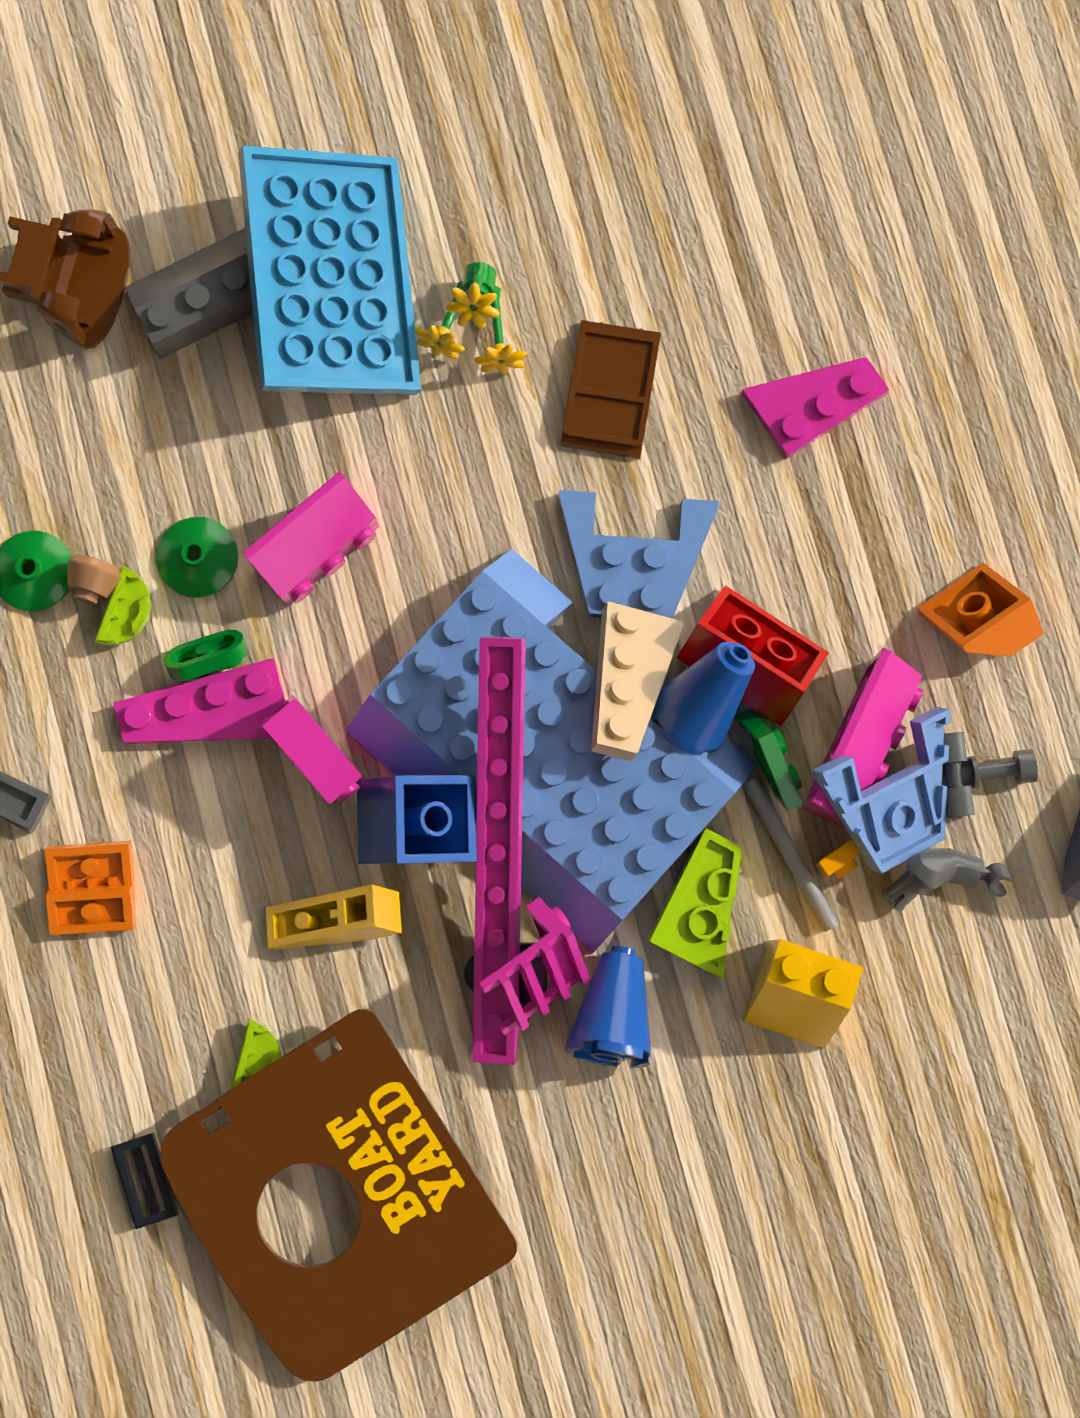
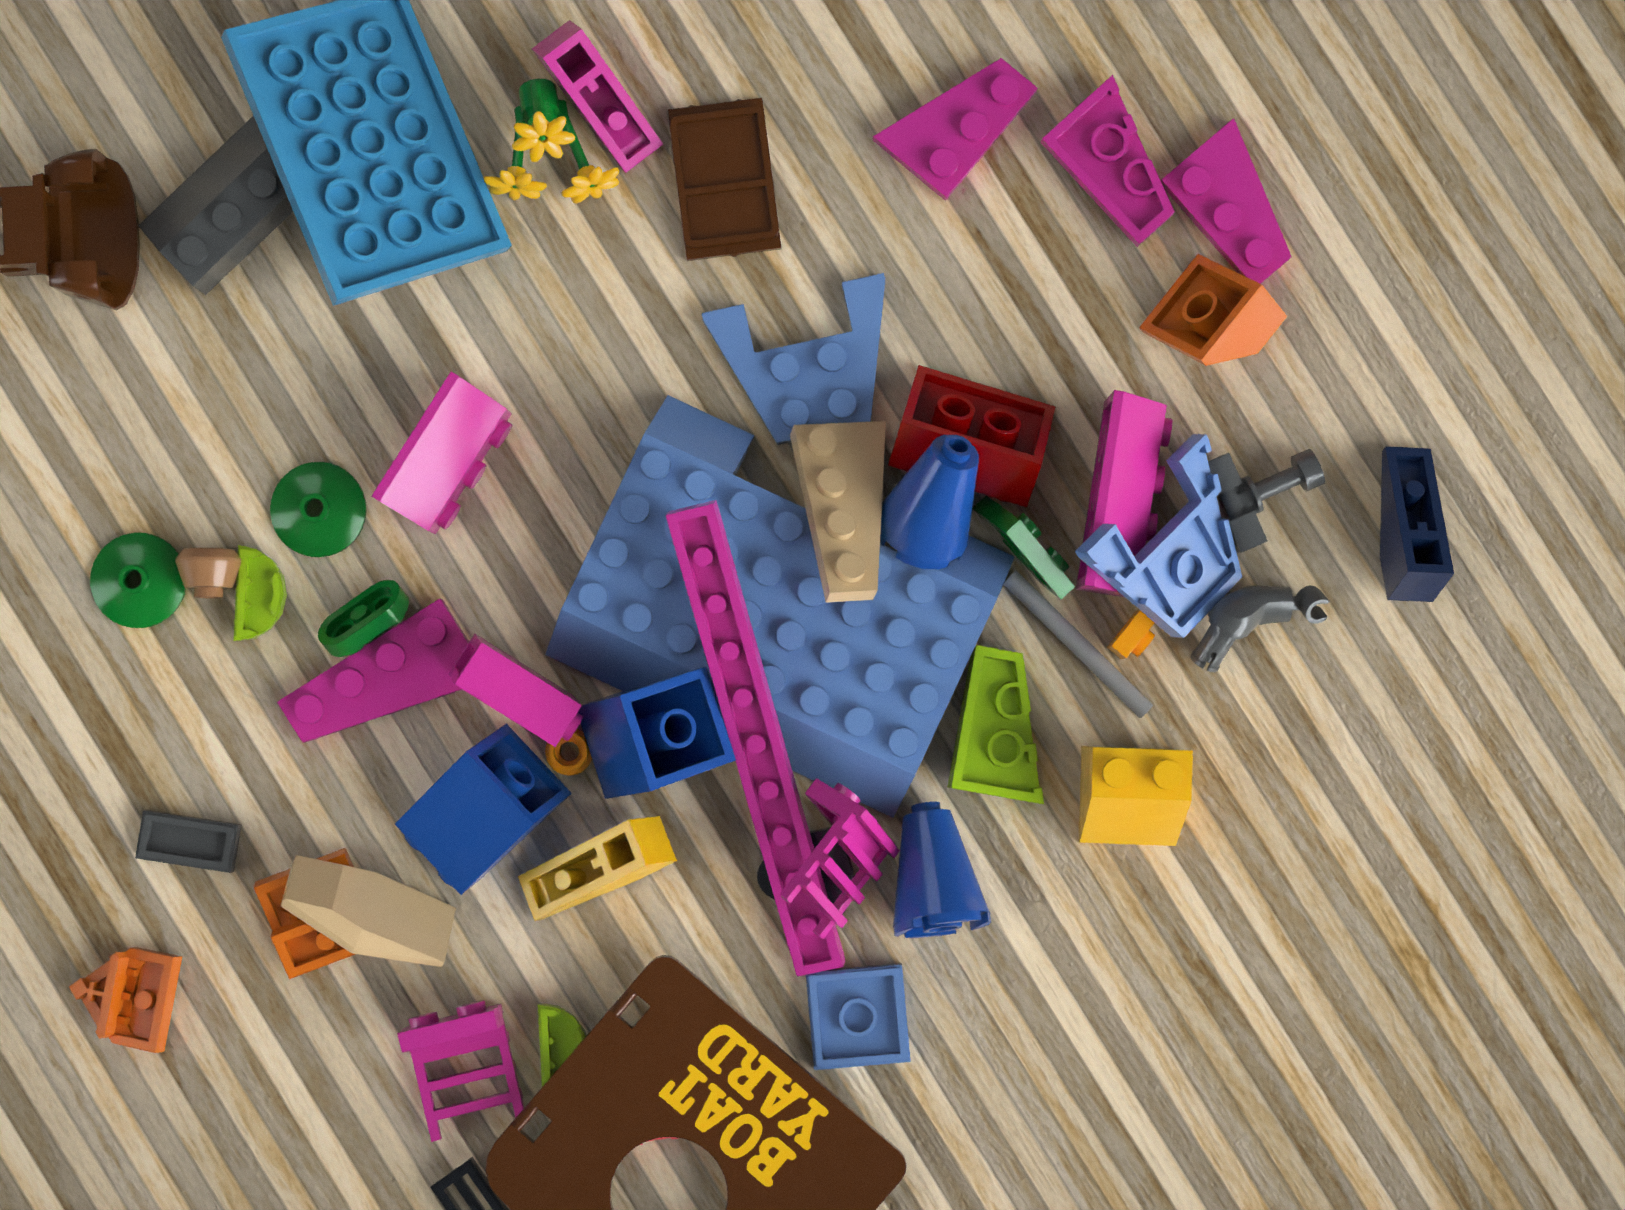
camera: 15 degrees left, 5 degrees up
(132, 897) = (368, 912): none -> tan piece
(170, 1024) = (467, 1031): none -> dark pink plate
(253, 840) = (482, 808): none -> blue slope
(327, 818) = (566, 767): none -> light orange plate
(513, 1112) = (858, 1016): none -> medium blue tile
(528, 291) = (597, 95): none -> dark pink slope
(931, 467) = (1109, 162): none -> dark pink wing
(1020, 529) = (1229, 205): none -> dark pink wing

